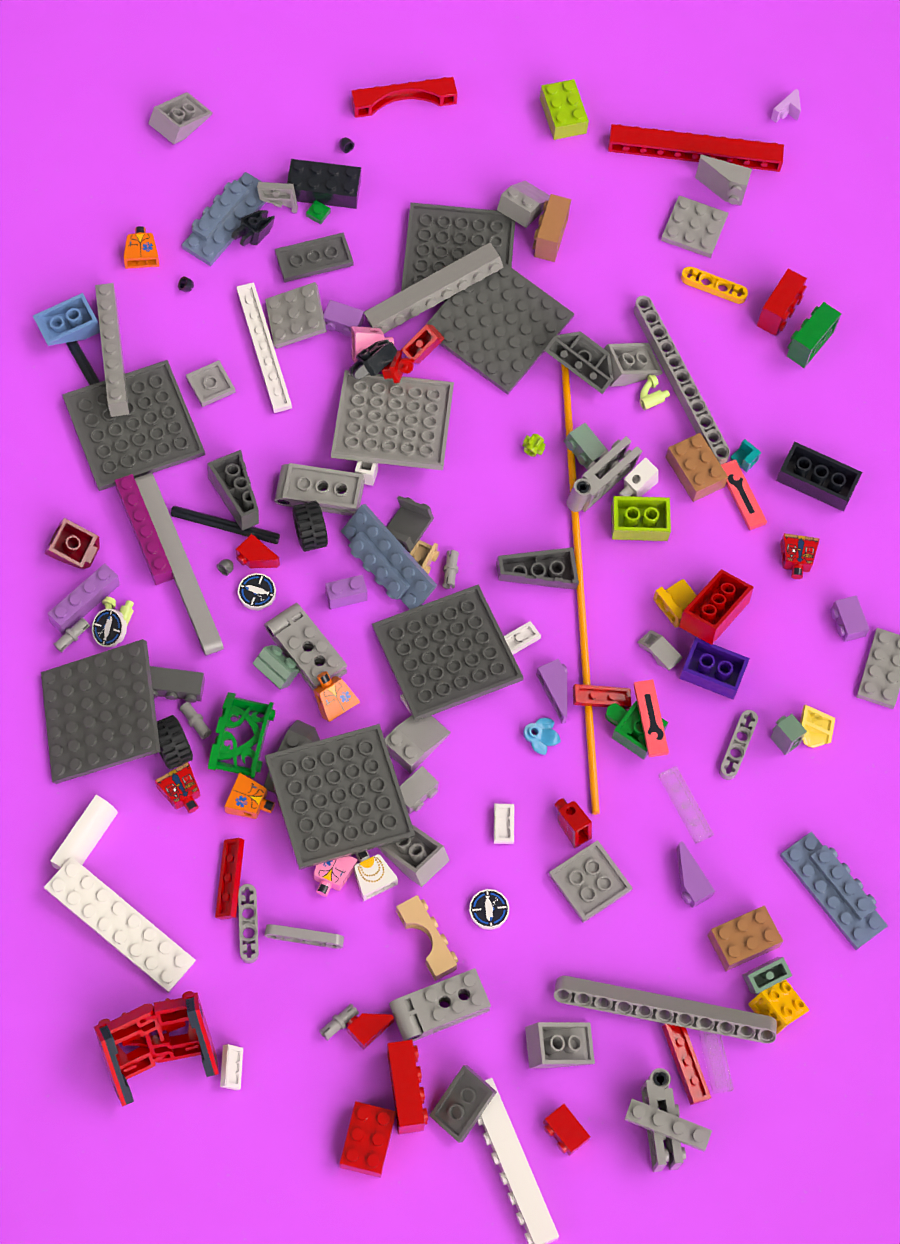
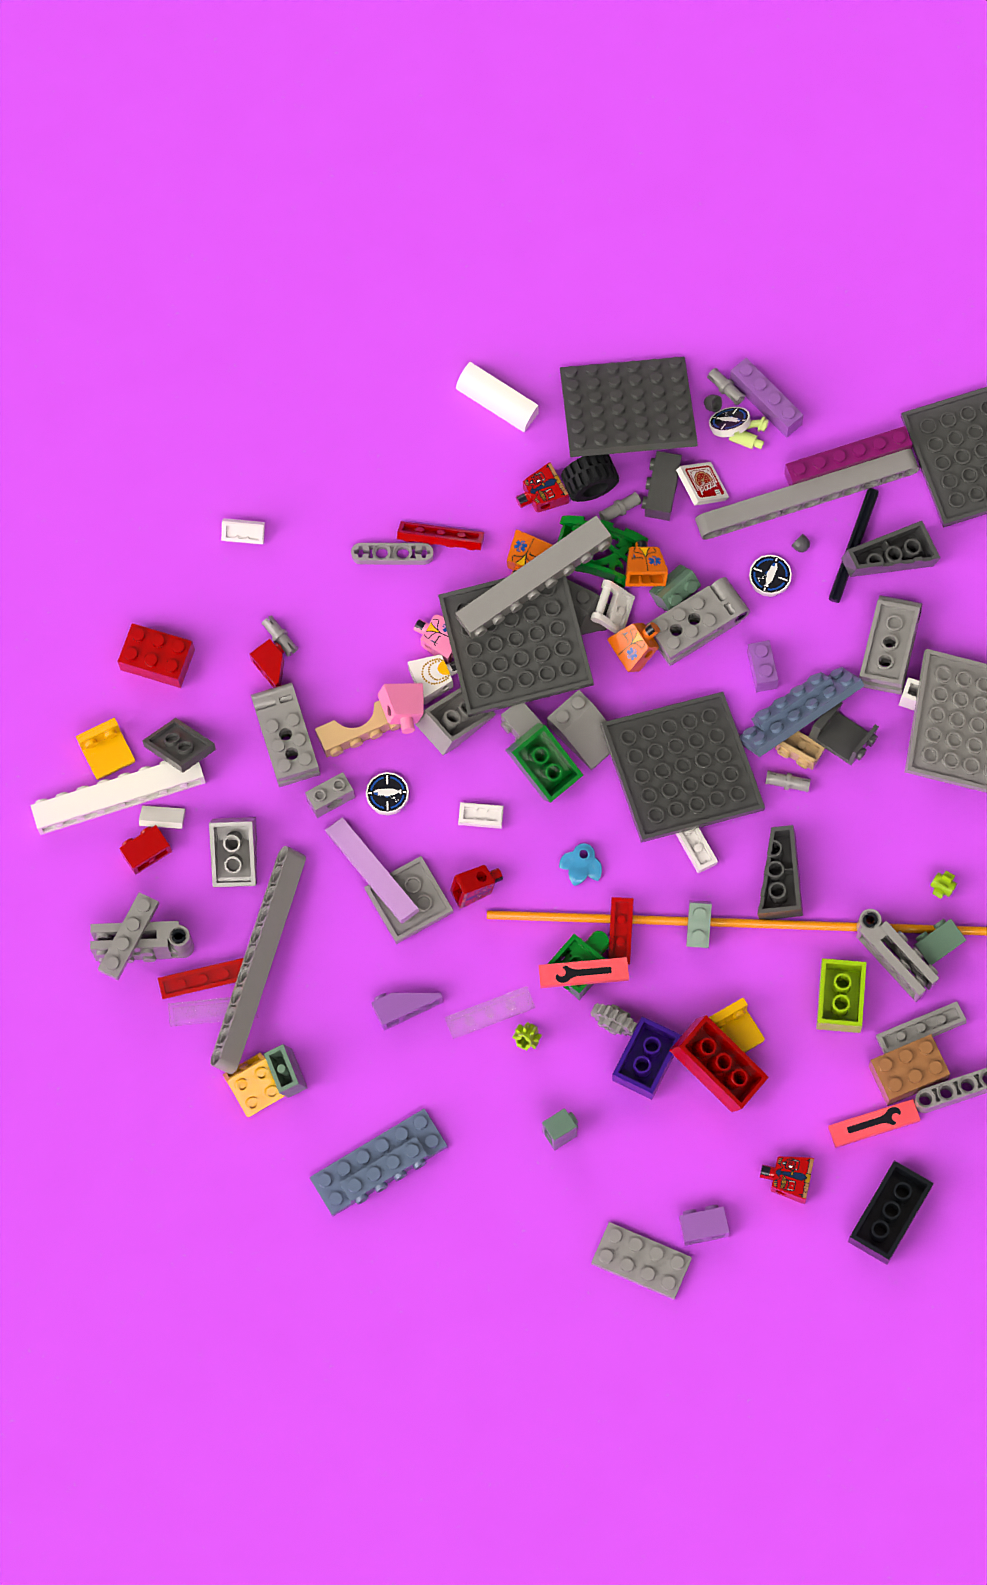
camera: 105 degrees right, 5 degrees up
(73, 545) = (830, 388): dark red slope -> none
(88, 645) = (713, 403): none -> dark grey hinge
(119, 924) = (399, 428): white plate -> none
(135, 1030) = (278, 465): red container -> none
(171, 648) = (702, 483): none -> tile
(256, 554) = (814, 573): red slope -> none
(260, 688) = (645, 566): none -> orange torso
(283, 777) = (534, 577): none -> light grey brick
(297, 718) = (618, 609): none -> white plate
(304, 936) = (372, 606): light grey beam -> none
(310, 526) = (840, 626): black tyre -> none
(405, 1086) = (202, 692): red brick -> none
(410, 892) = (402, 704): none -> bright pink torso
(455, 765) = (544, 762): none -> green brick
(469, 1179) = (105, 749): none -> yellow bracket
(497, 959) = (330, 795): none -> light grey brick
(532, 1117) = (162, 817): none -> white tile
(554, 682) = (638, 883): medium lavender slope -> none
(568, 914) = (372, 870): none -> lavender tile
(591, 631) = (698, 924): none -> brick
(640, 479) = (891, 1000): white torso -> none
(658, 457) = (930, 1023): none -> light grey plate
(661, 649) = (674, 1001): light grey slope -> none
(685, 695) = (613, 1019): none -> light grey gear
(706, 769) = (527, 1036): none -> lime gear
(738, 744) = (558, 1076): light grey beam -> none
(745, 938) = (330, 1054): medium nougat brick -> none
(746, 455) = (923, 1132): teal panel -> none
(818, 727) = (571, 1166): light yellow slope -> none

